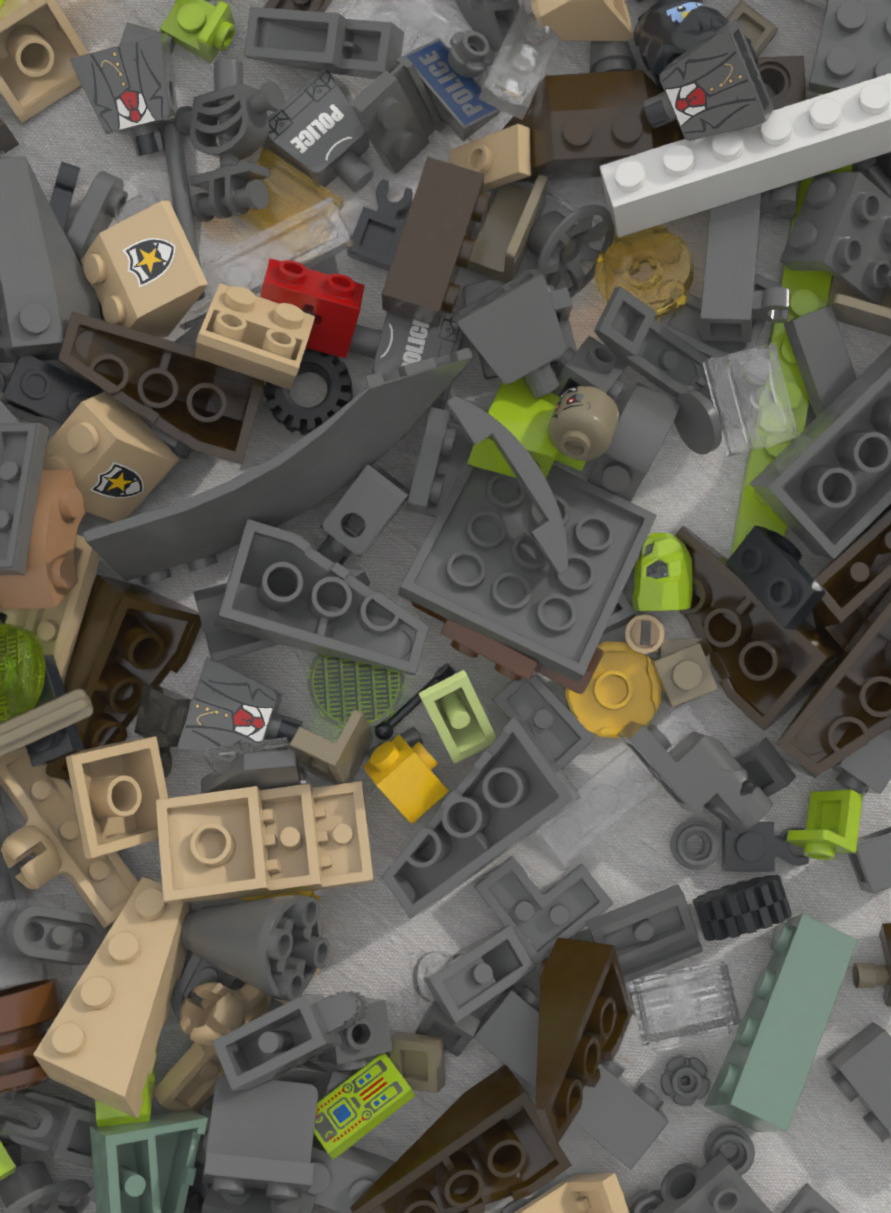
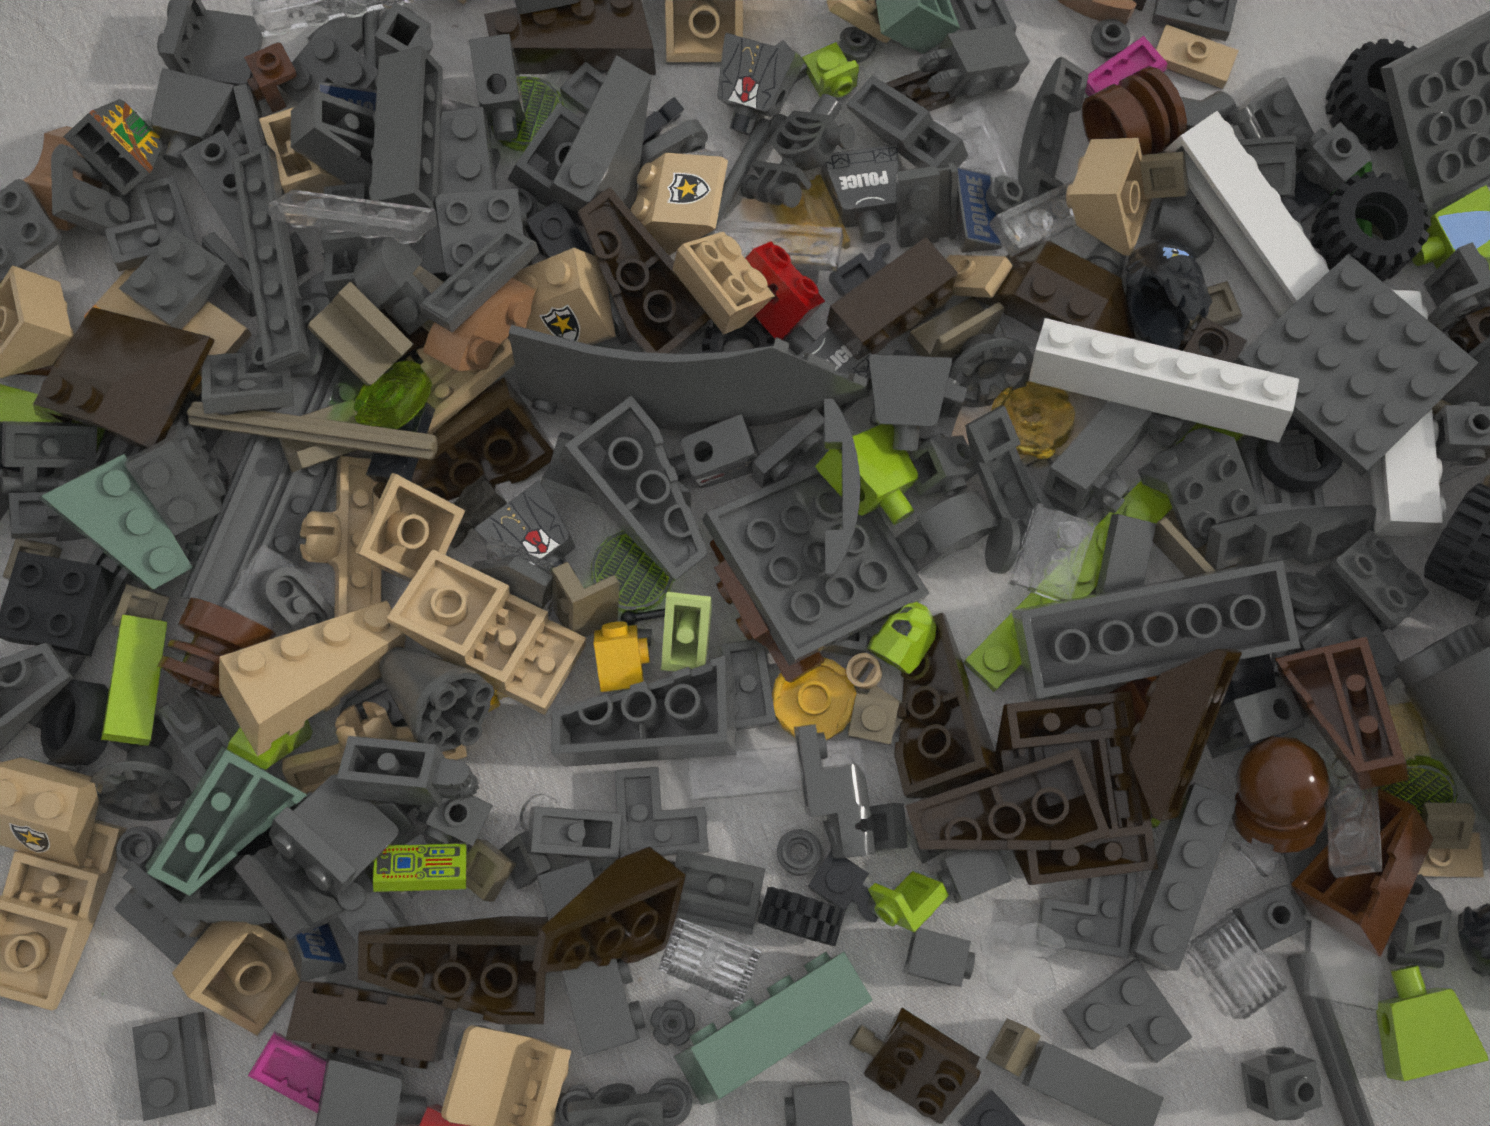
camera: 35 degrees right, 10 degrees down
(583, 423) = (918, 484): dark tan head -> none
(712, 88) = (1159, 308): dark grey torso -> none
(774, 575) = (986, 685): black plate -> none

